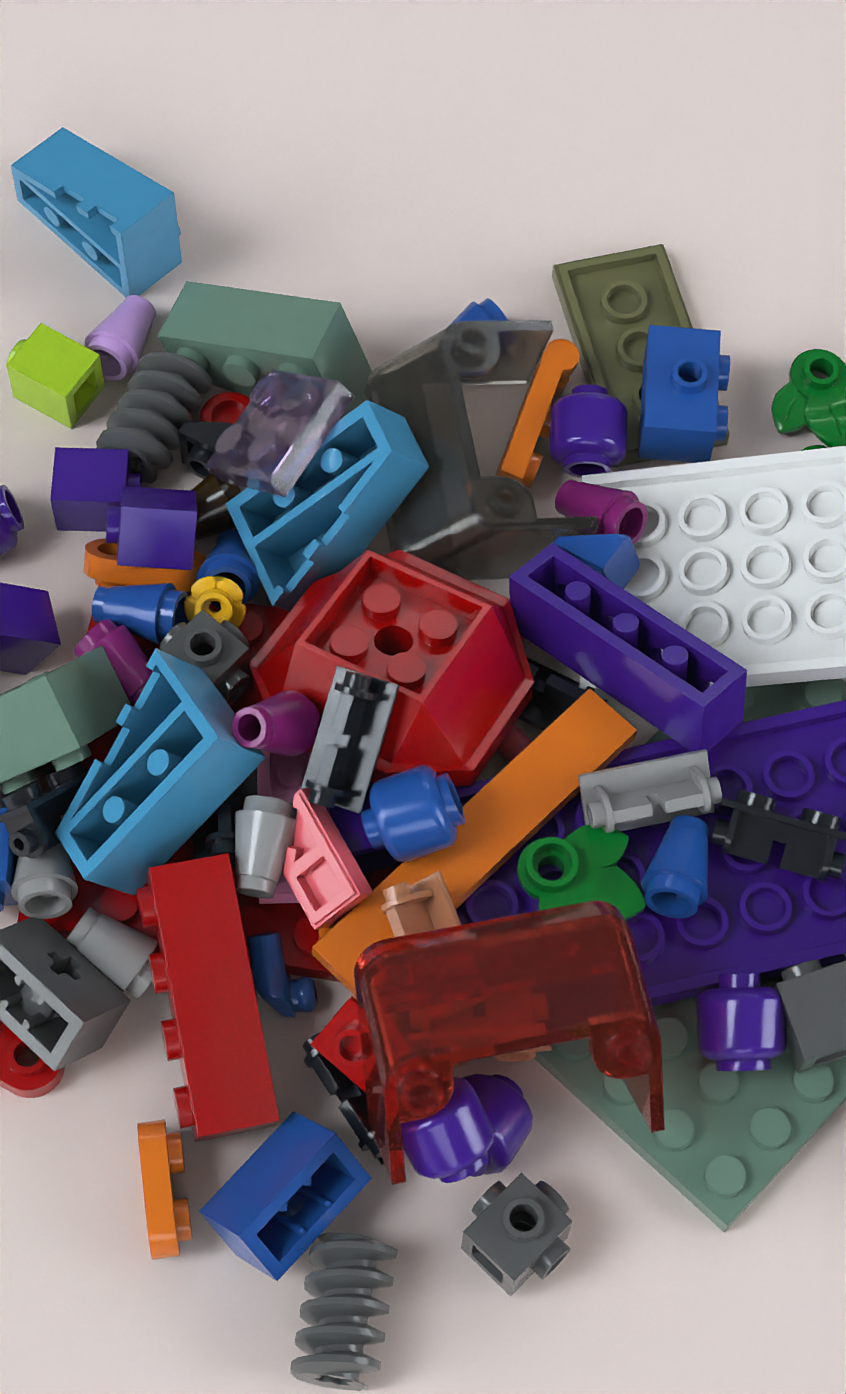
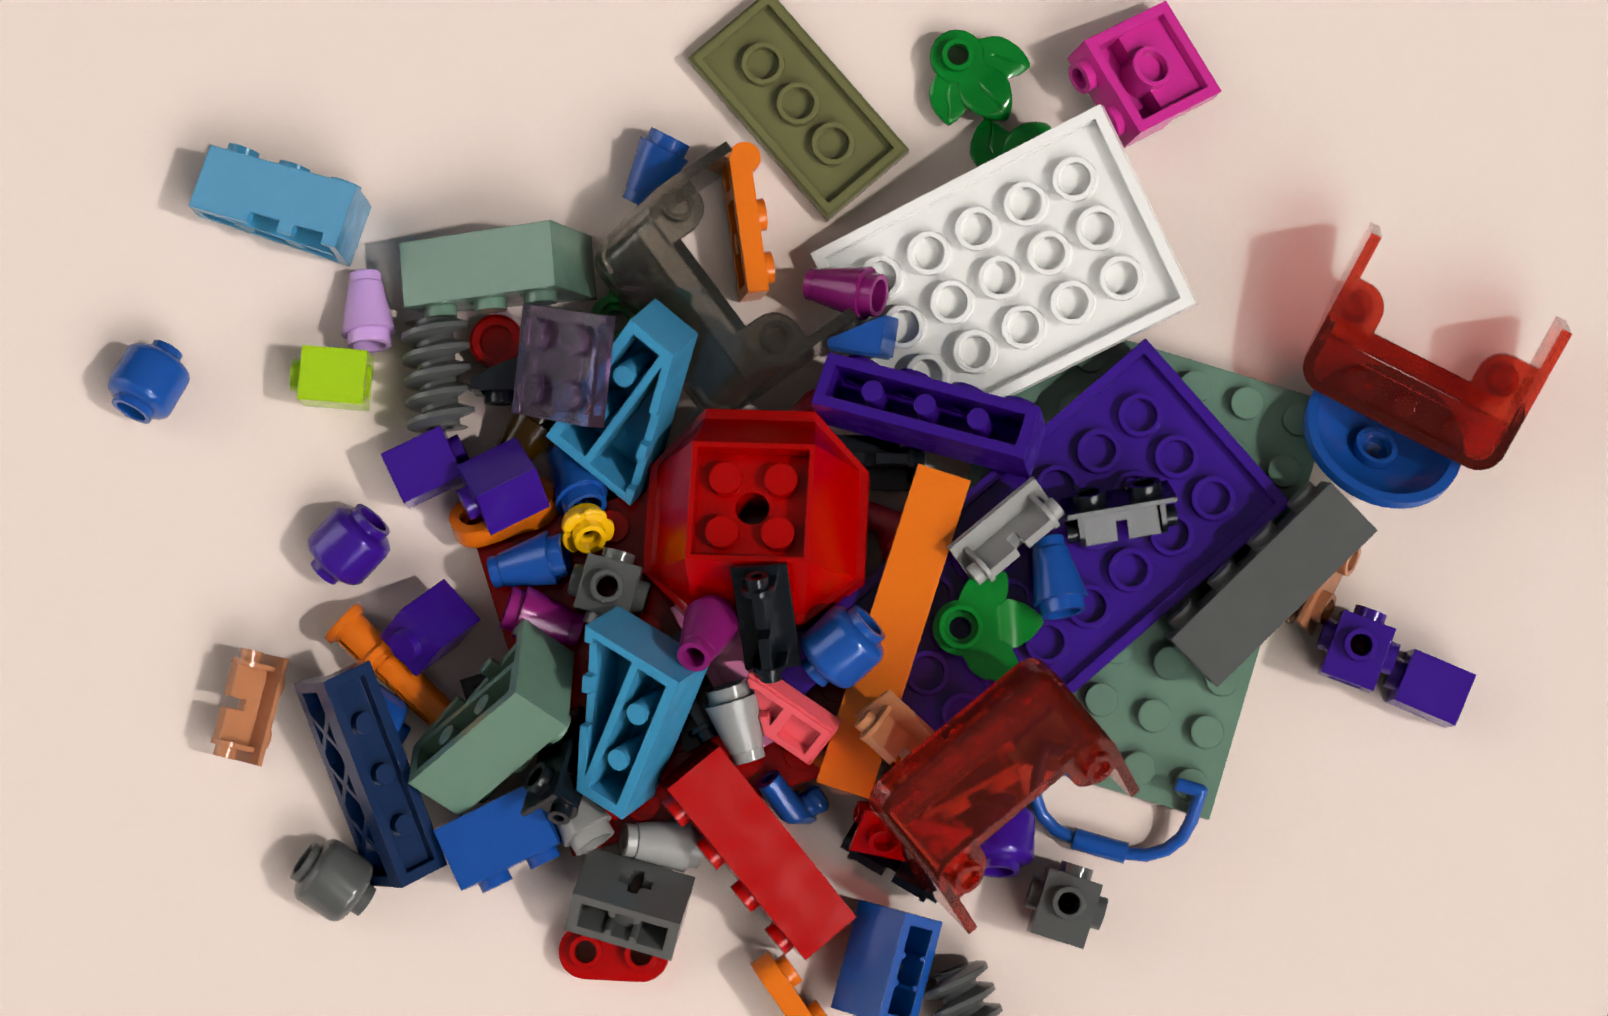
camera: 25 degrees left, 20 degrees up
(451, 1141) = (1001, 880): dark purple head -> none
(588, 431) = (799, 215): dark purple head -> none
(595, 1200) = (1119, 850): none -> blue piece
(681, 394) = (858, 143): blue brick -> none
(741, 1023) = (1155, 675): dark purple head -> none

